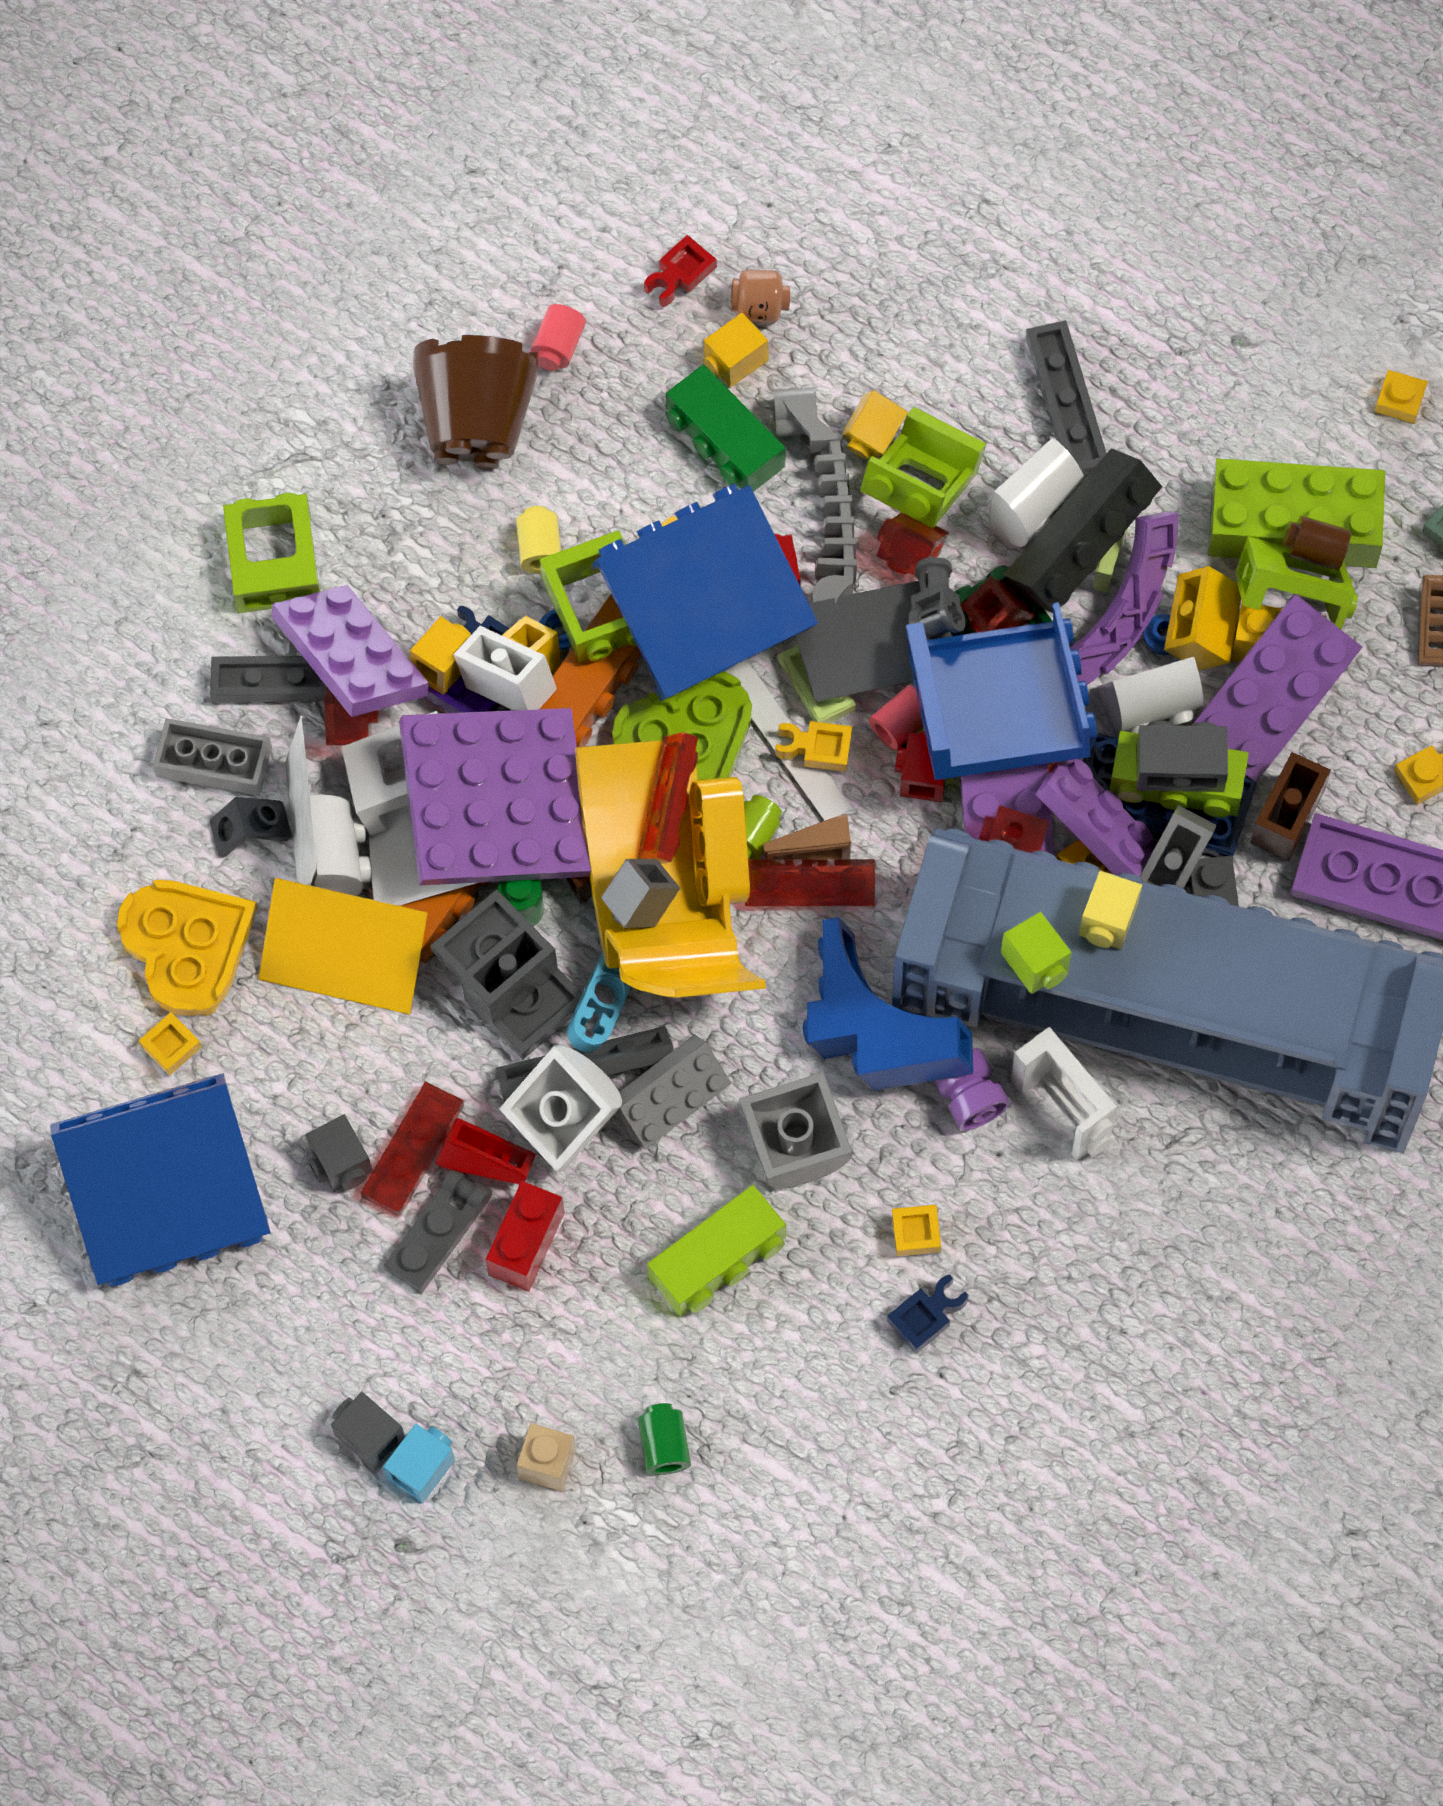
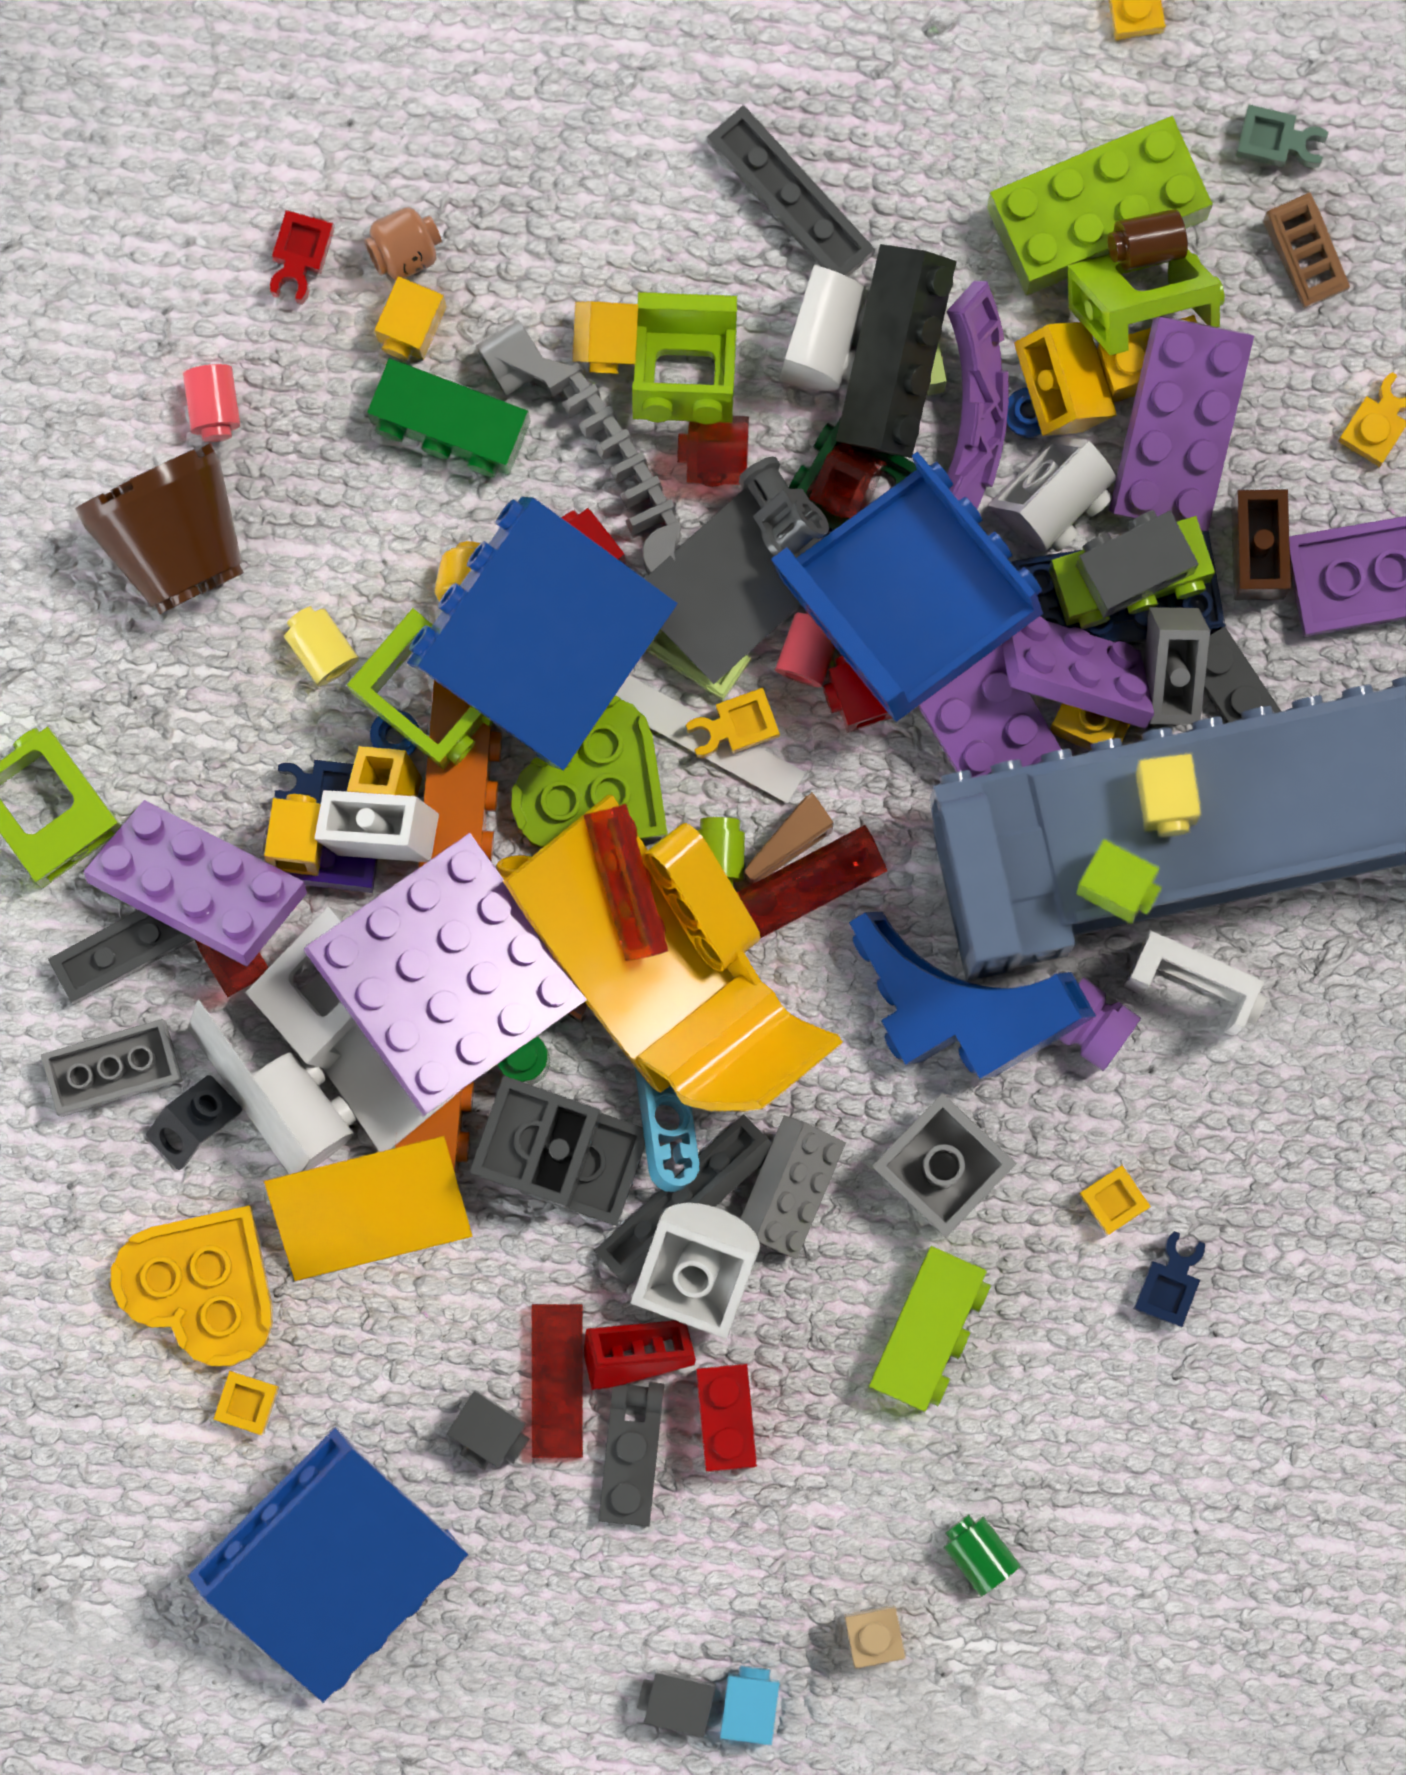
camera: 25 degrees left, 15 degrees up
(640, 893) = (656, 1003): dark grey brick -> none
(1016, 828) = (1005, 737): clear red brick -> none

